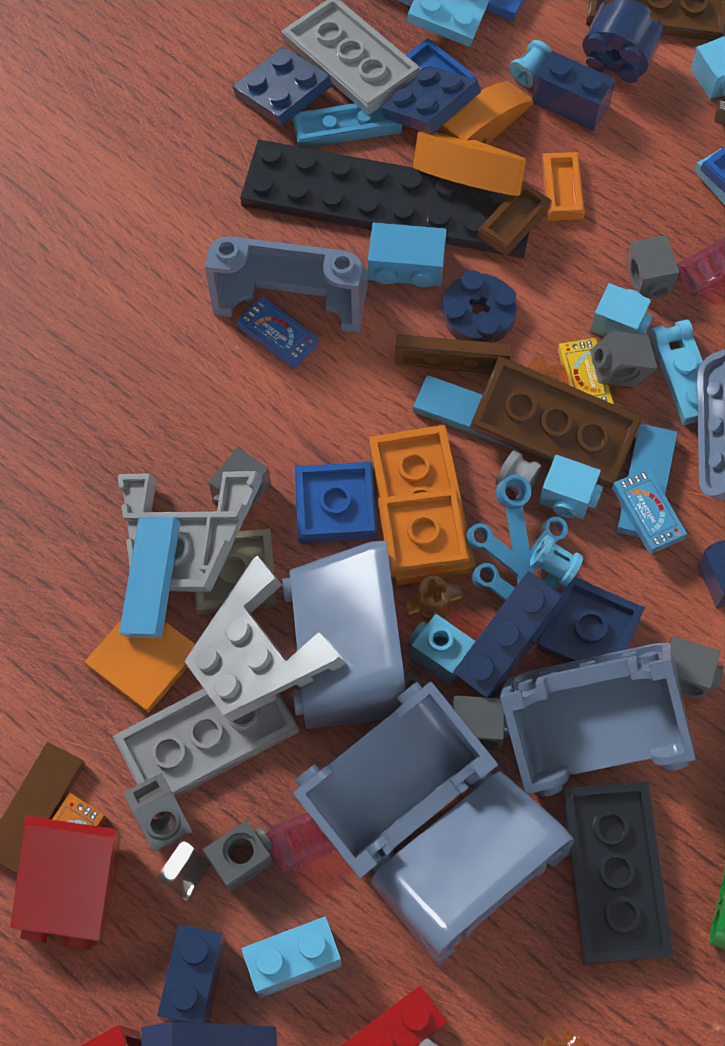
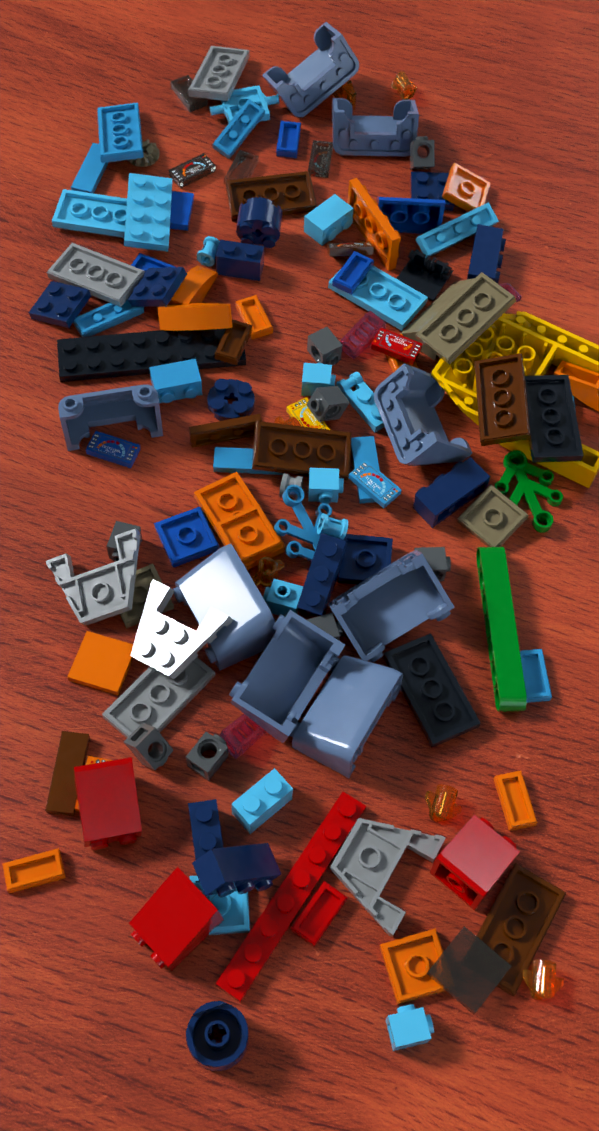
camera: 25 degrees left, 5 degrees down
(150, 577) = (91, 612): dark azure tile -> none
(184, 871) = (177, 775): clear smoke tile -> none

